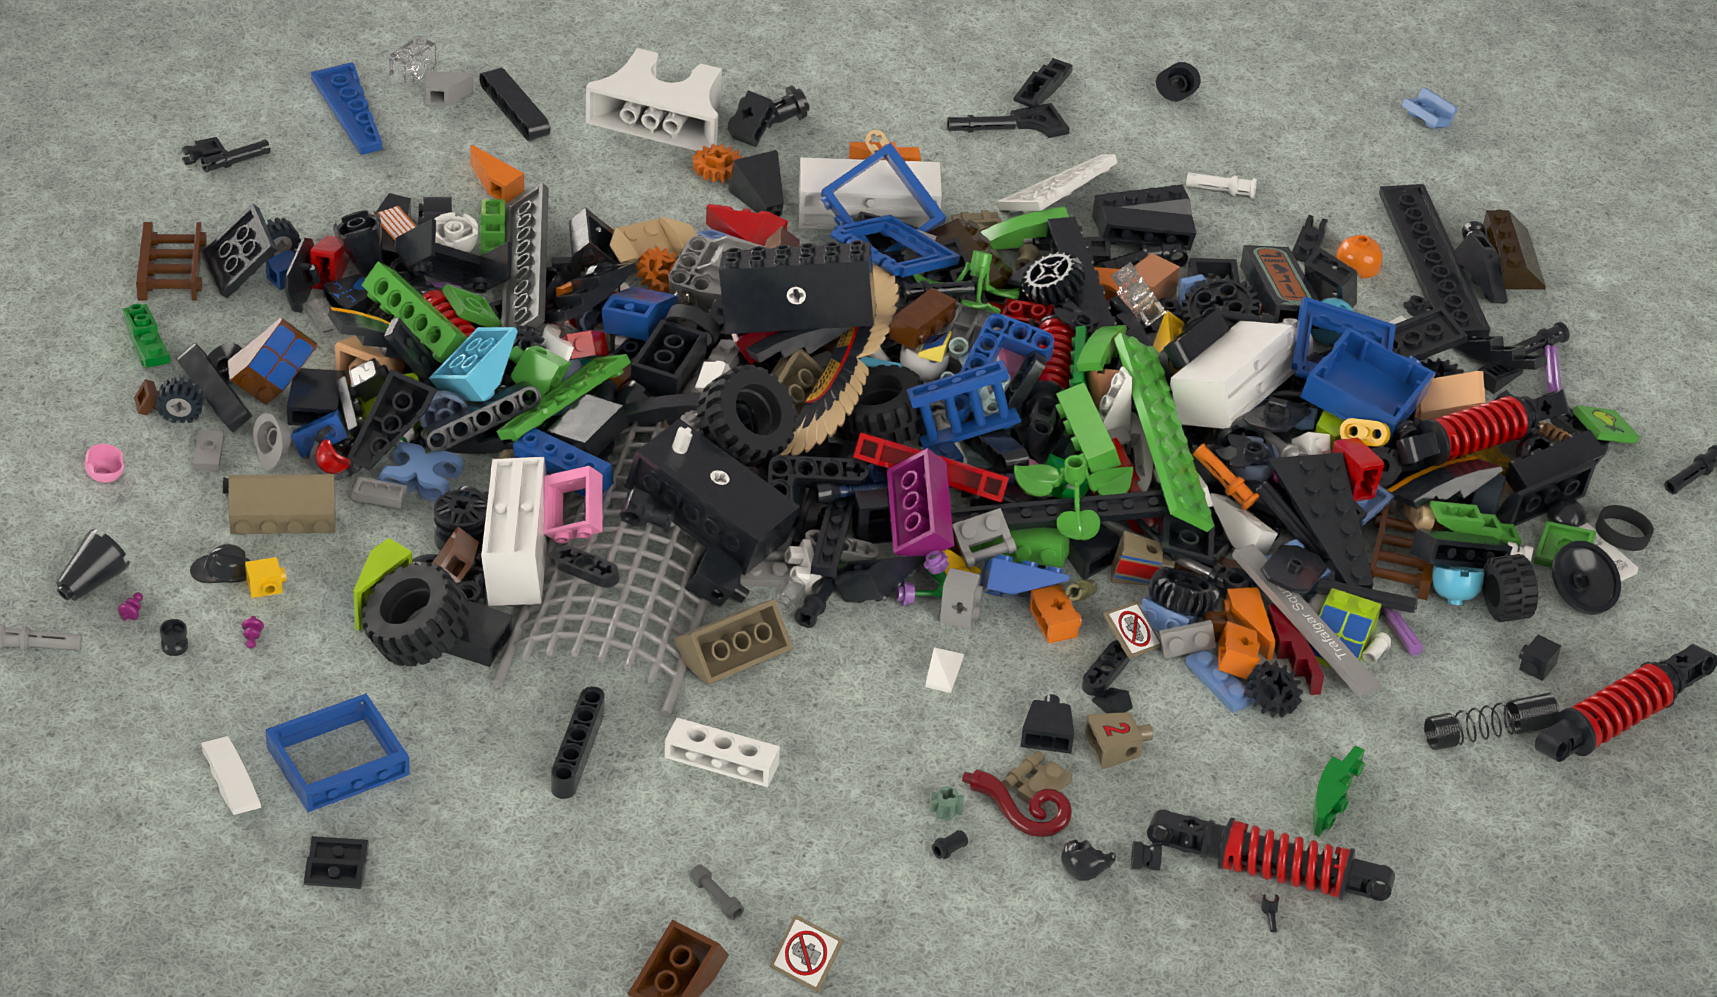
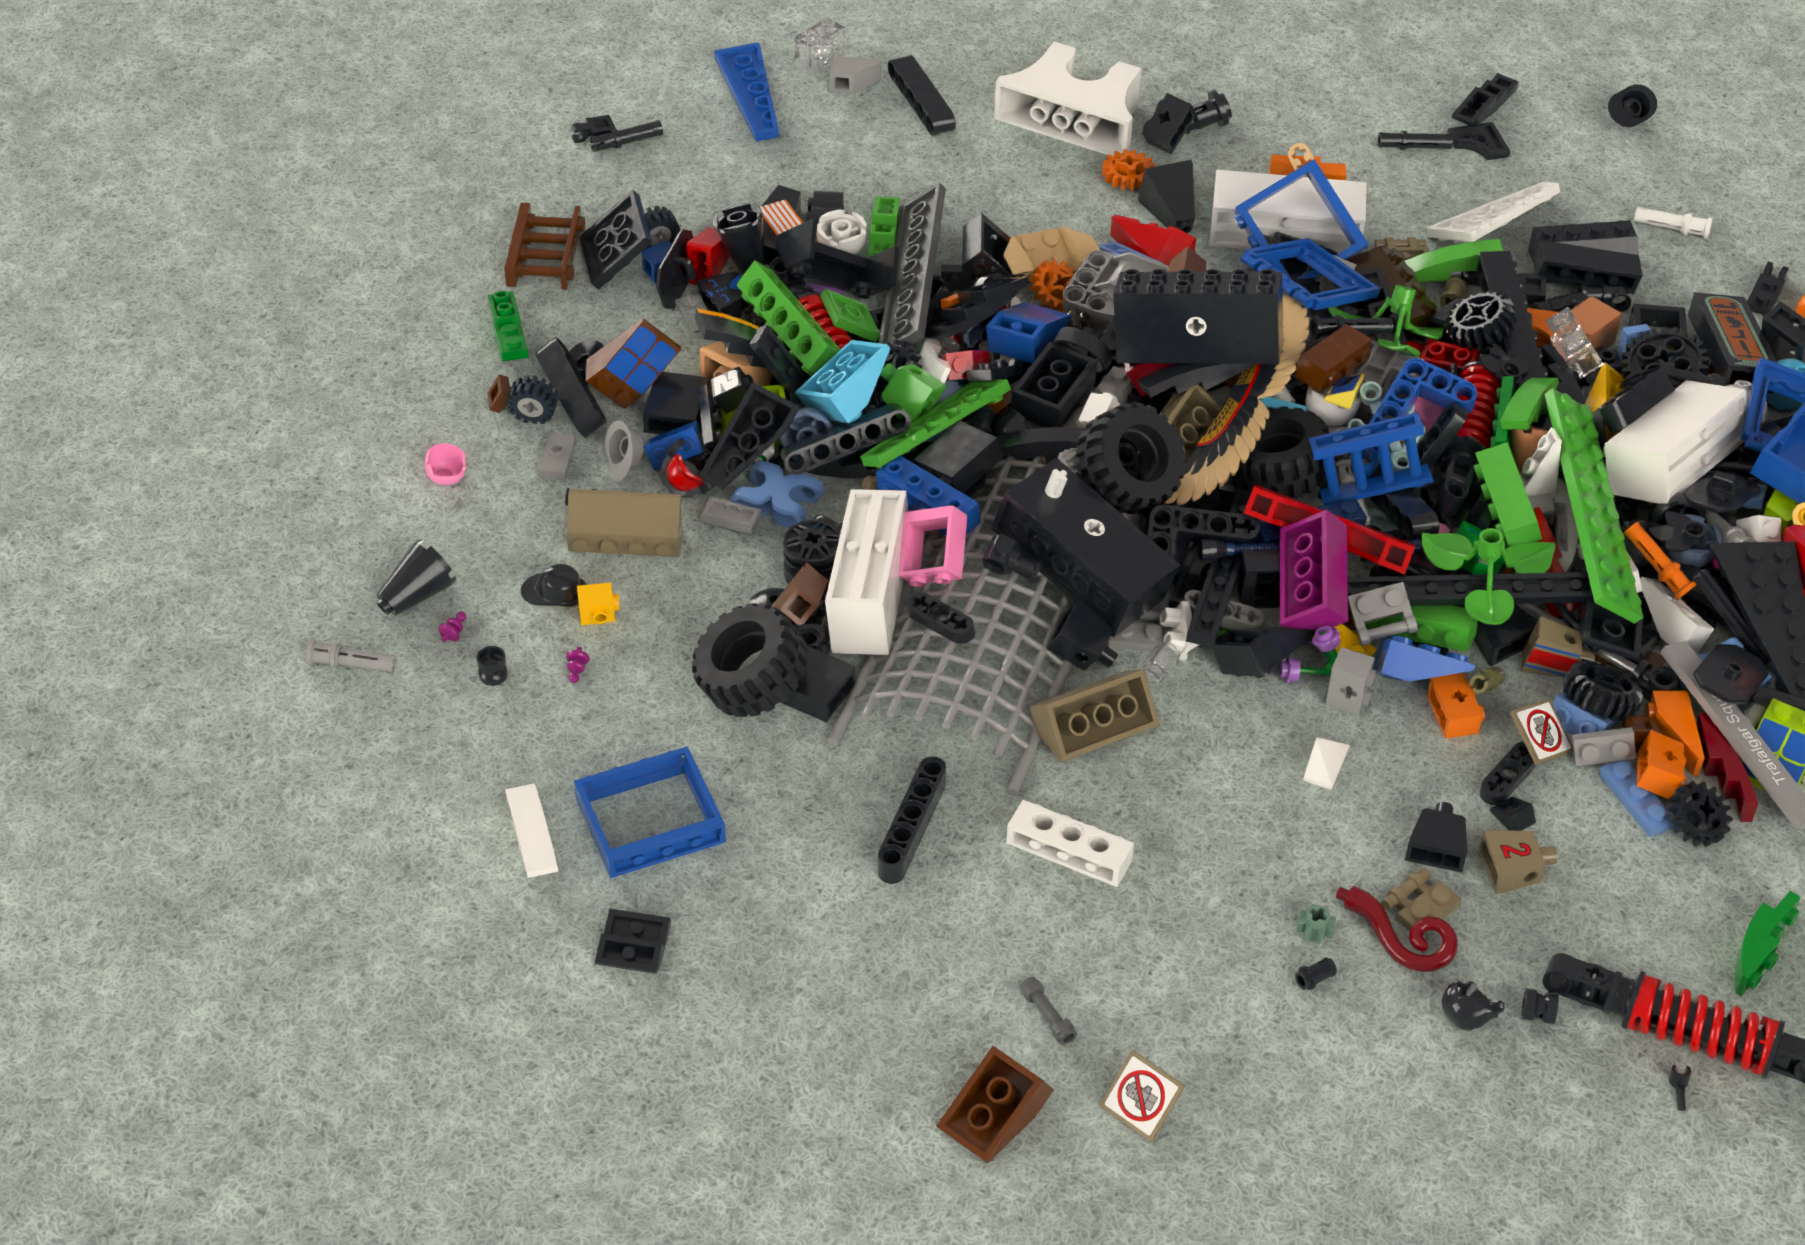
camera: 10 degrees right, 5 degrees up
(380, 562) = (719, 598): lime slope -> none
(496, 176) = (894, 172): orange slope -> none
(613, 347) = (995, 370): none -> black hinge
(815, 603) = (1189, 674): black pin -> none

